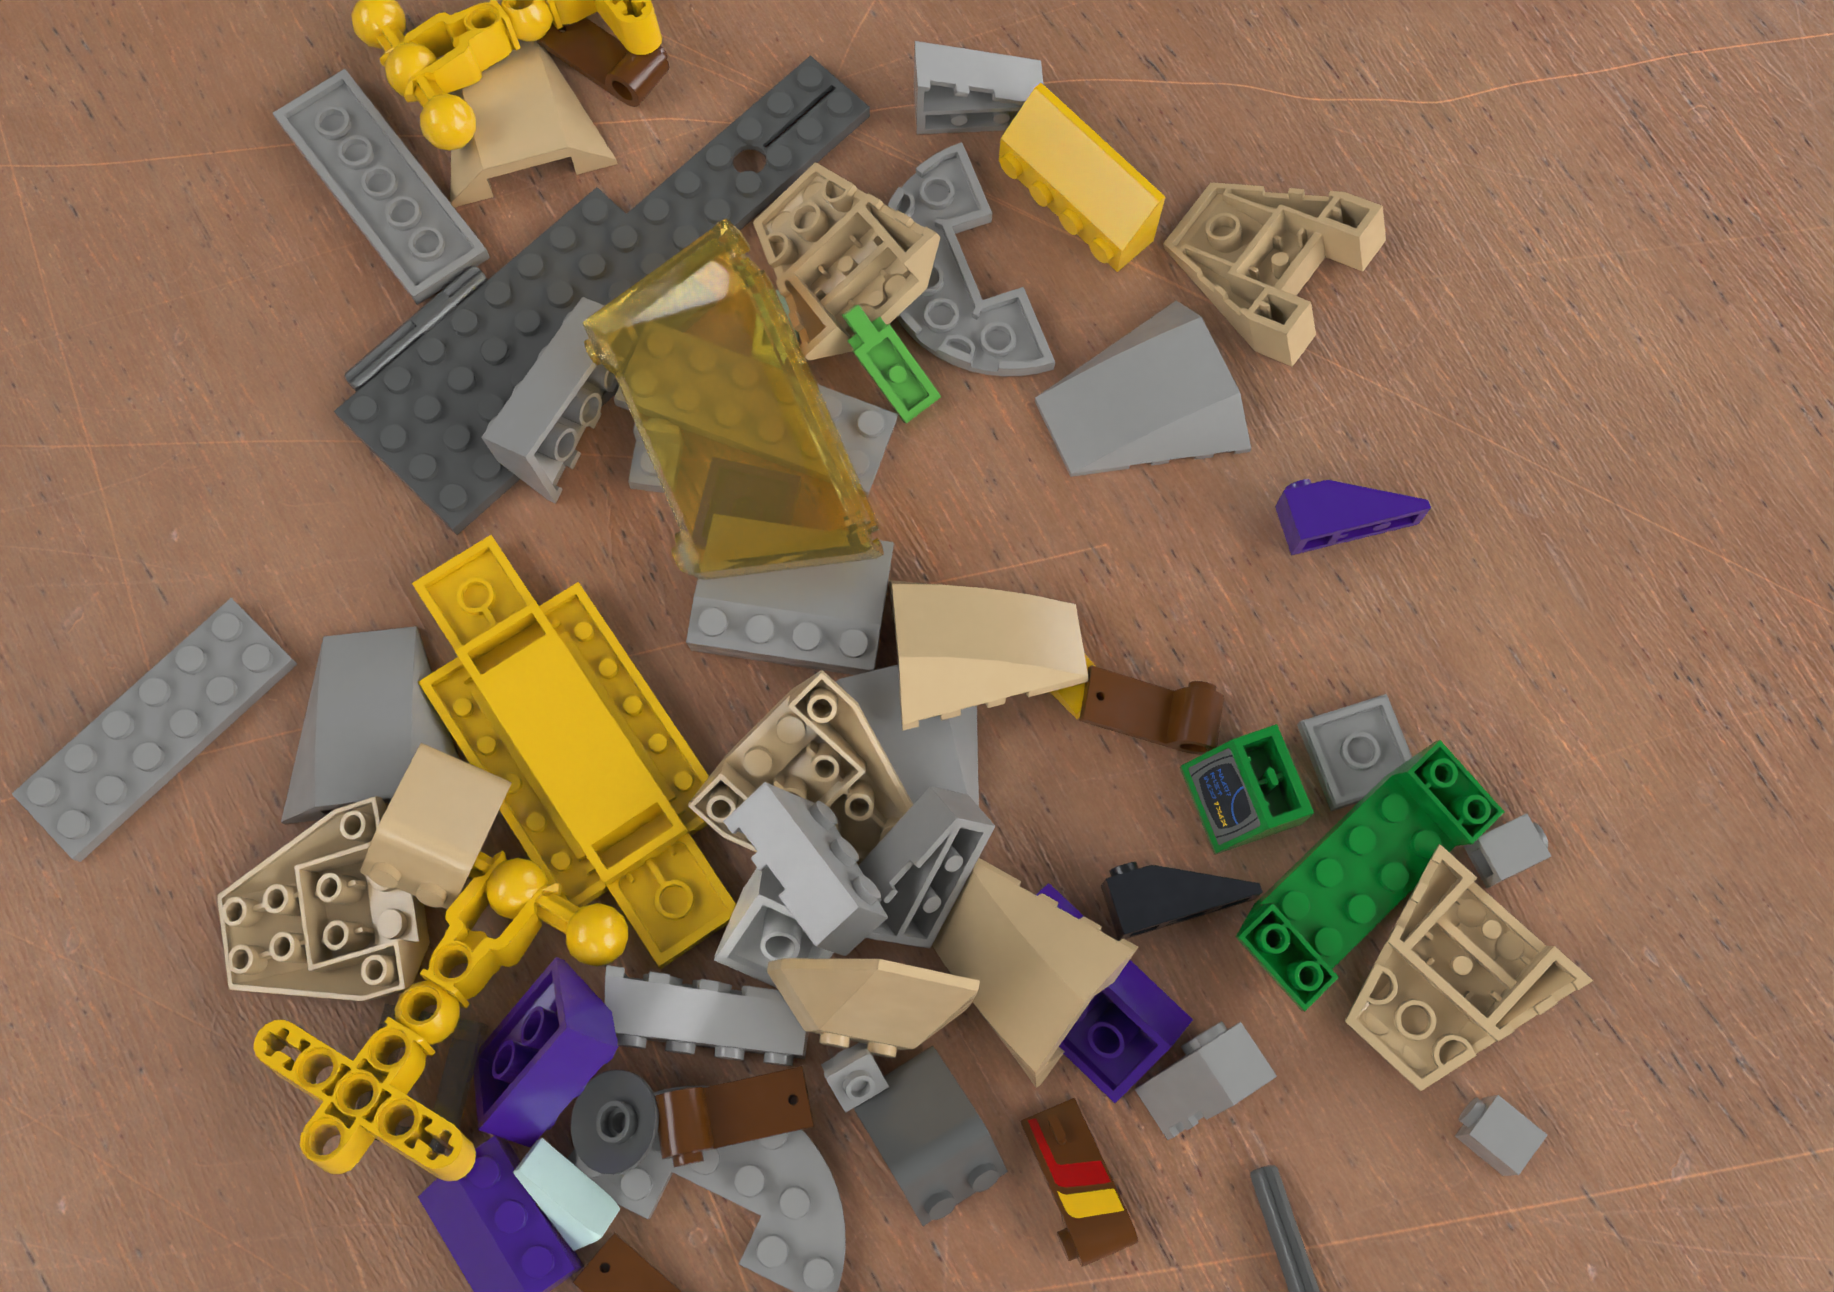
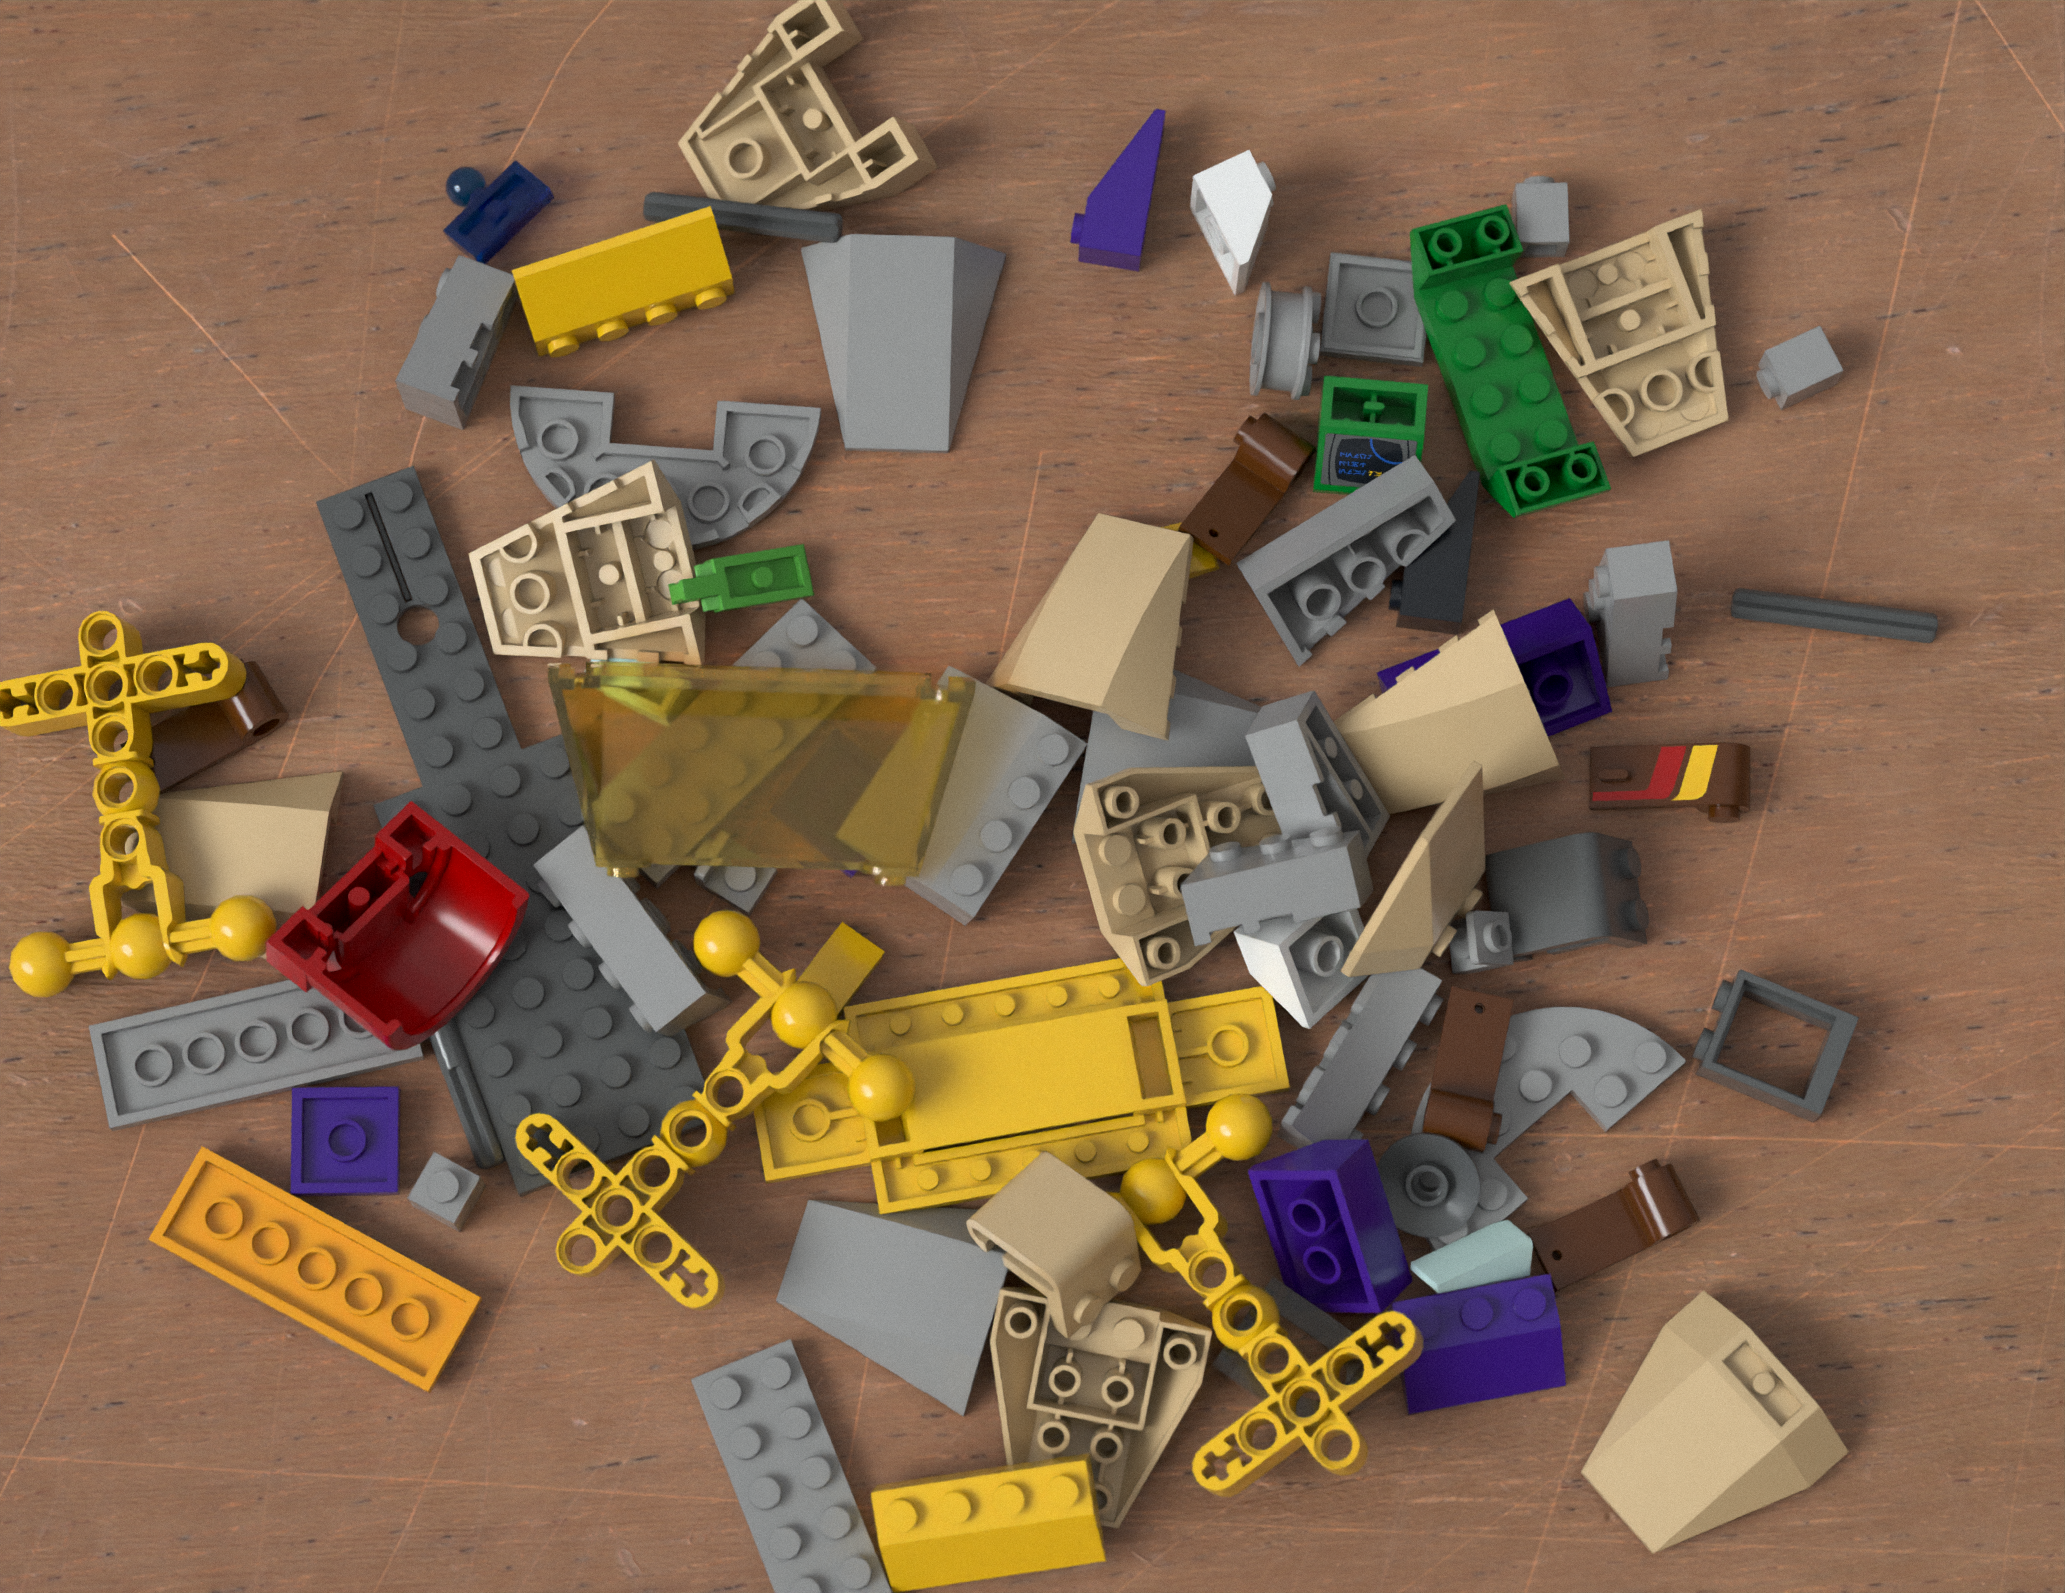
camera: 65 degrees left, 5 degrees up
(187, 875) = (989, 1523): none -> yellow slope
(219, 298) = (315, 1269): none -> light orange plate
(311, 357) = (446, 1191): none -> light grey brick
(327, 275) = (345, 1141): none -> dark purple plate
(368, 412) = (801, 1017): none -> yellow piece
(479, 238) = (396, 958): none -> red piece
(598, 565) = (843, 965): none -> yellow slope
(1091, 78) = (492, 212): none -> clear blue plate
(1135, 811) = (1345, 554): none -> light grey wedge
(1181, 254) = (749, 217): none -> dark grey axle
(1290, 682) = (1284, 341): none -> light grey wheel
(1379, 598) = (1233, 213): none -> white slope

